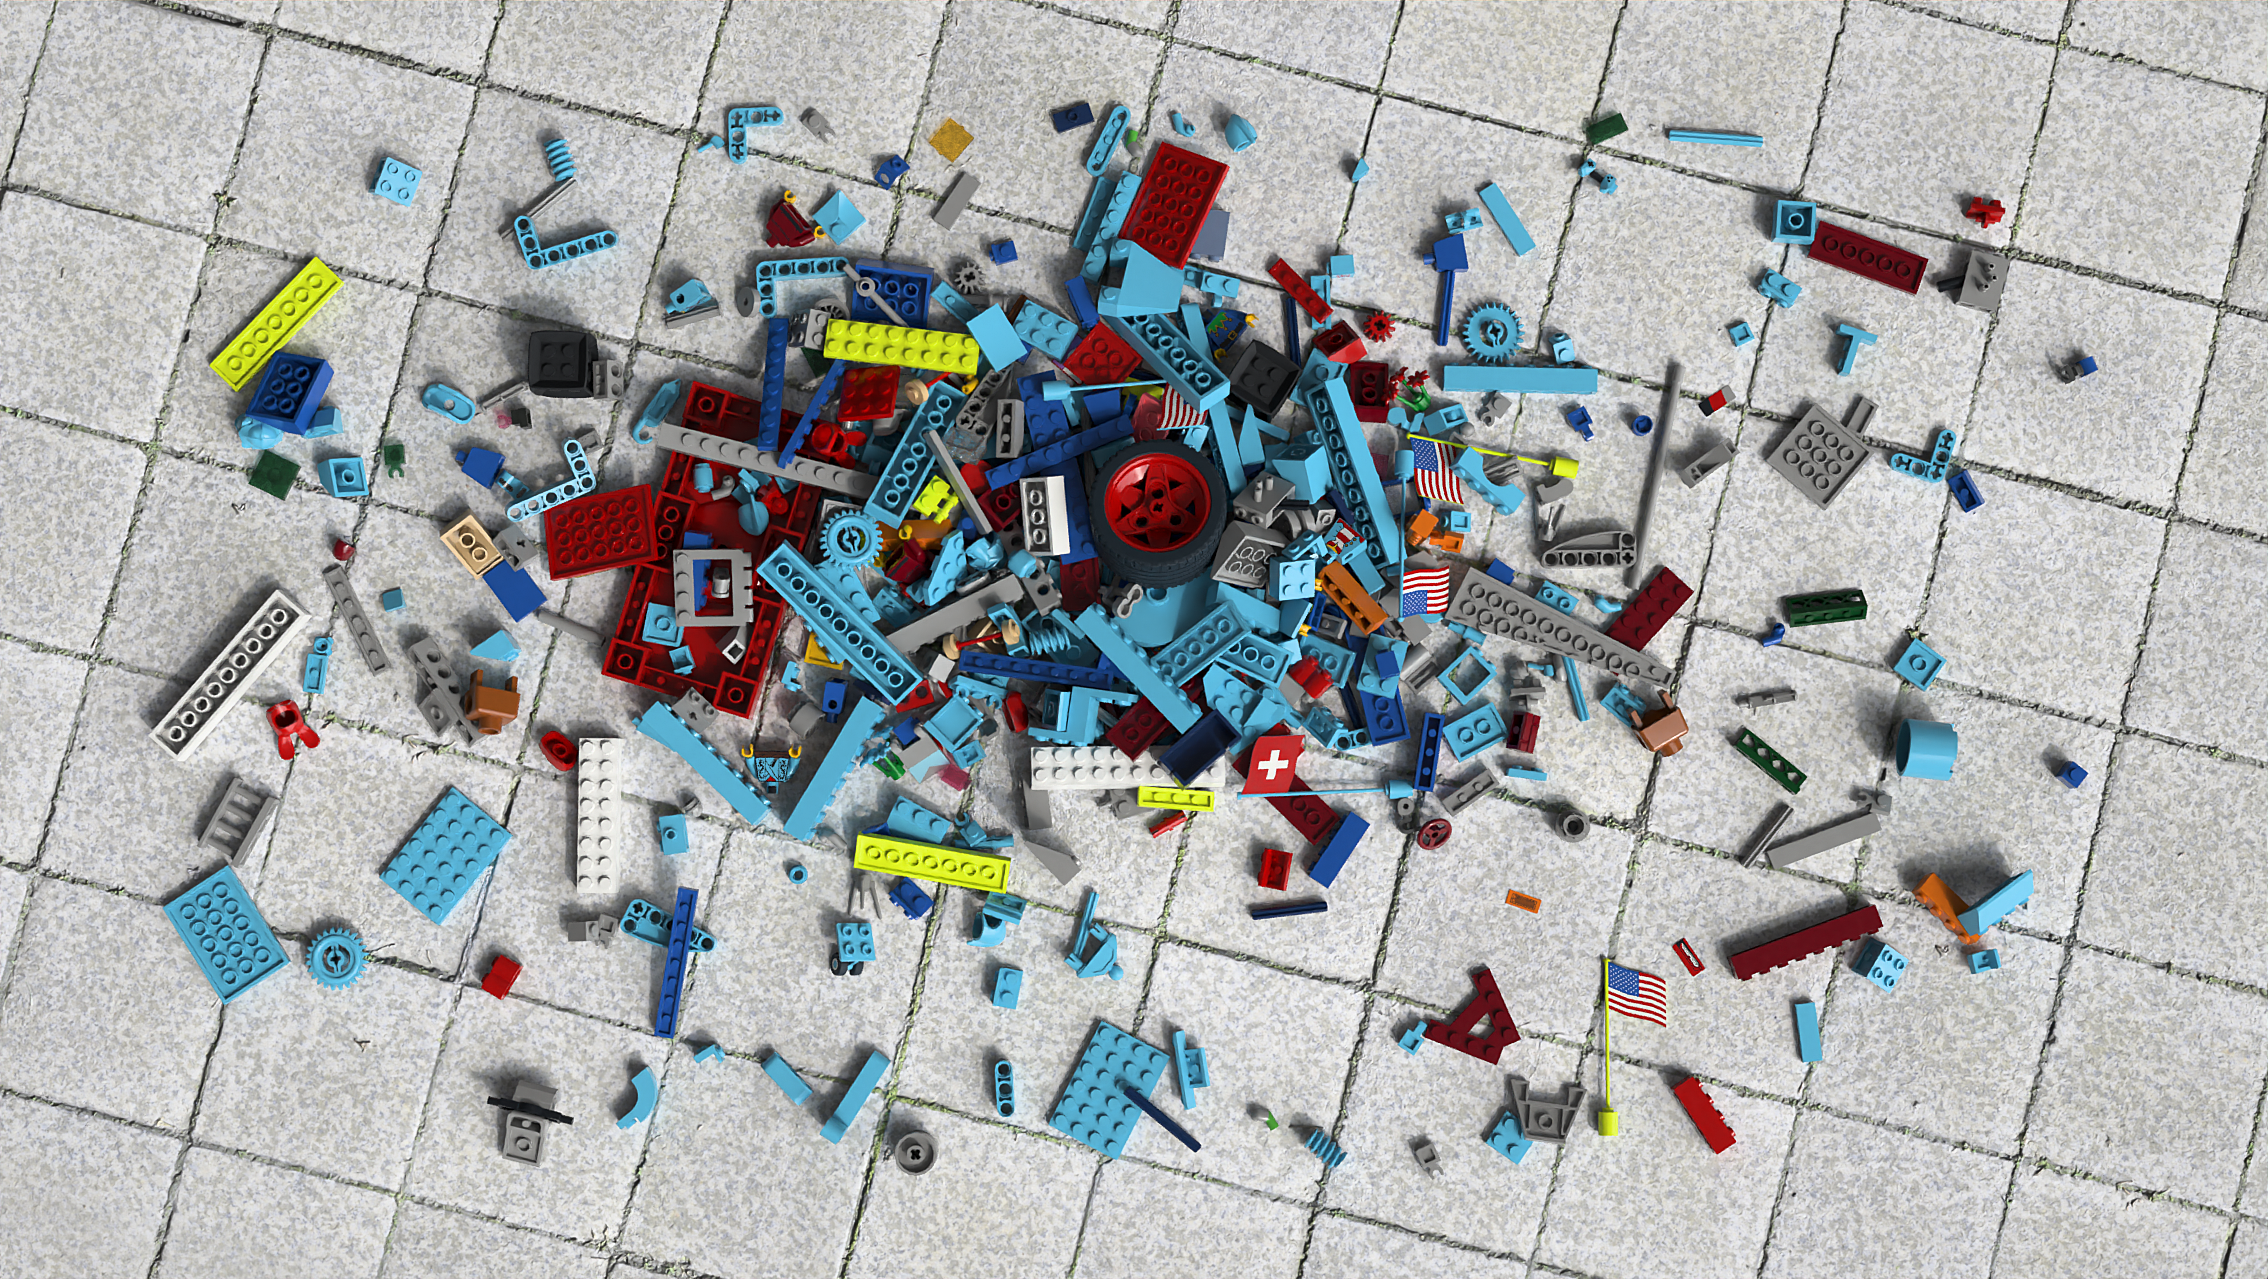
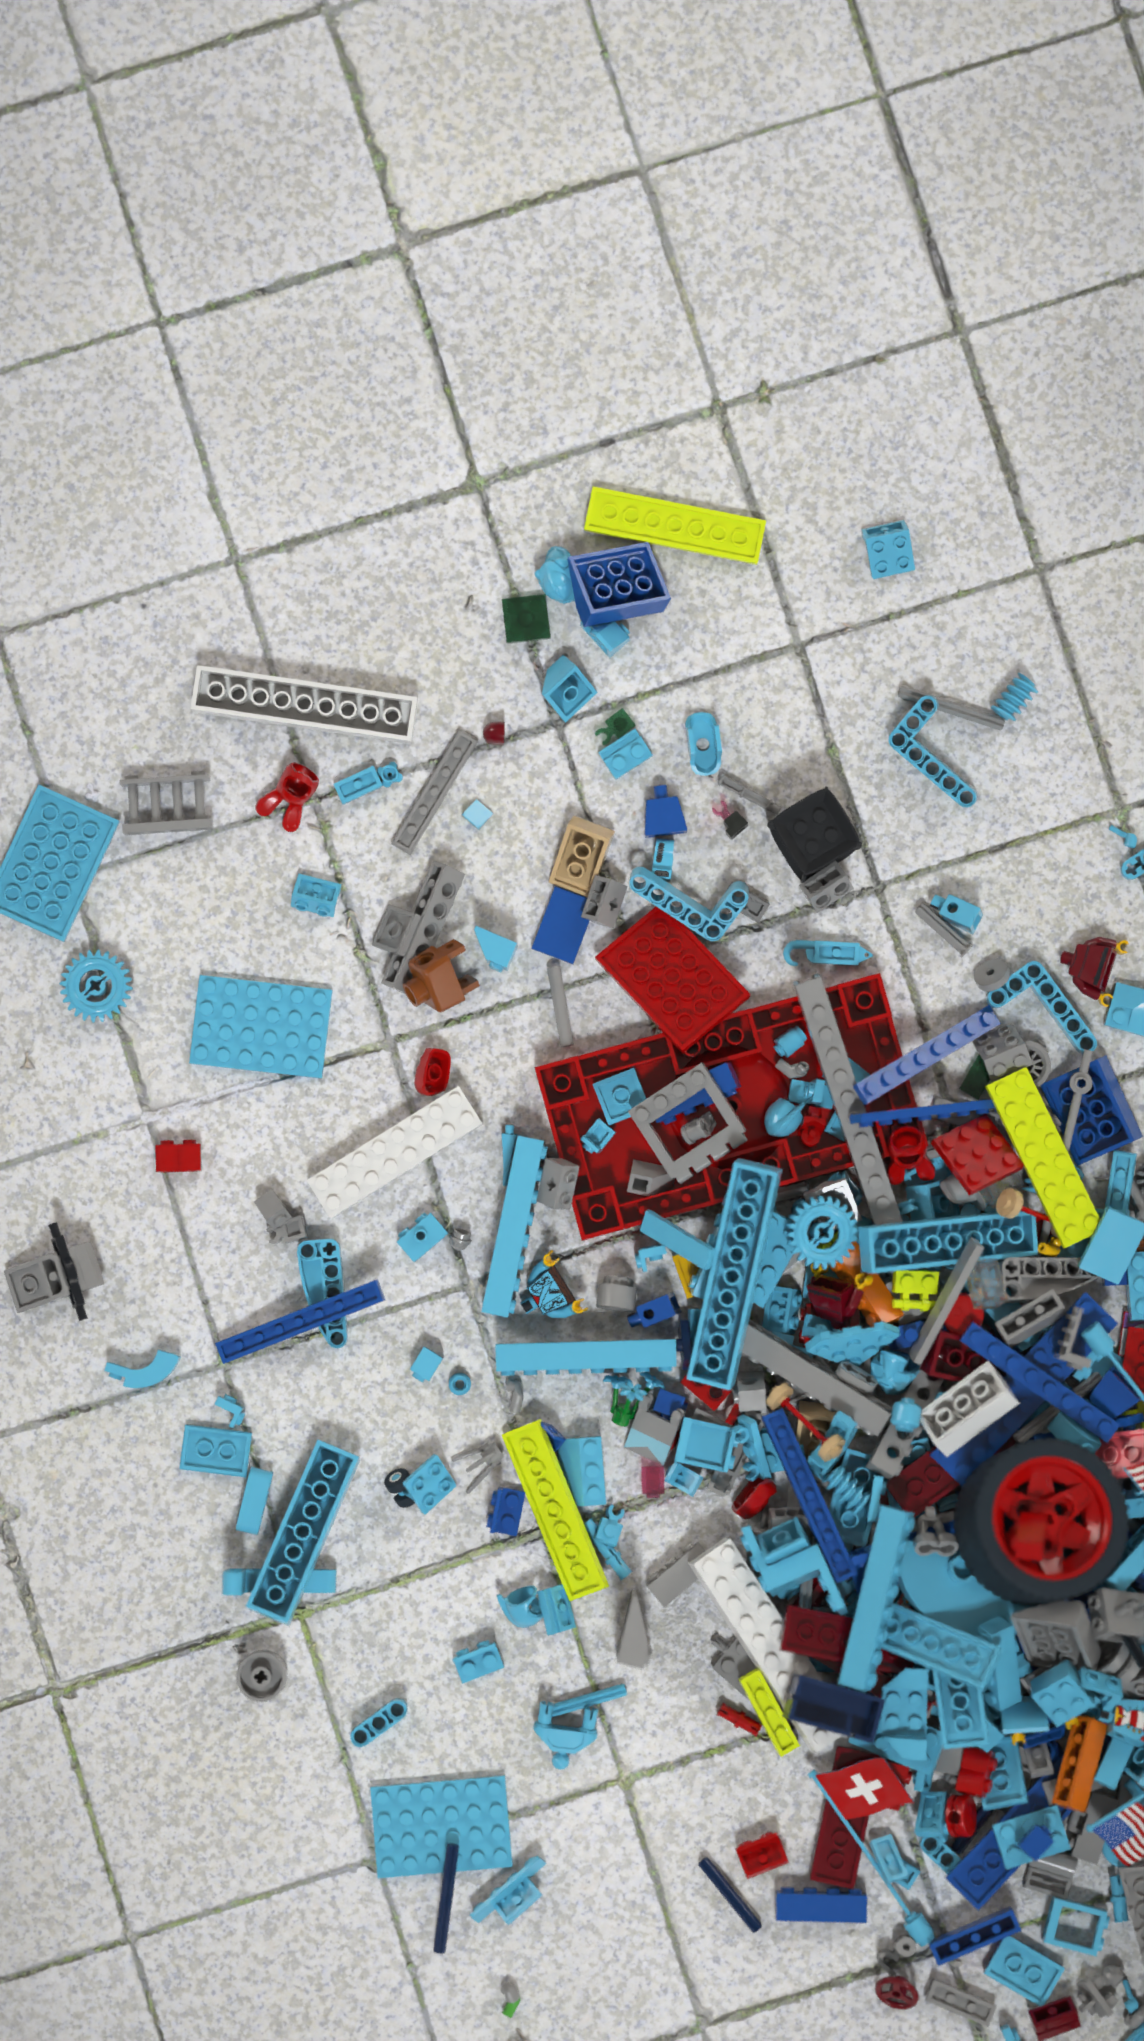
camera: 60 degrees right, 0 degrees up
(376, 755) = (315, 895): none -> medium azure bracket
(419, 465) = (625, 754): none -> medium azure plate
(733, 1084) = (215, 1450): none -> medium azure tile
(768, 890) = (426, 1364): none -> medium azure brick
(790, 648) = (677, 1239): none -> medium azure tile
(830, 1057) = (303, 1533): none -> medium azure brick
(1057, 416) = (1073, 1360): none -> light grey plate
(1160, 526) = (1030, 1536): none -> red brick
(1335, 779) = (888, 1859): none -> medium azure plate
(1336, 707) = (961, 1815): none -> red head
(1353, 774) = (913, 1872): none -> medium azure tile

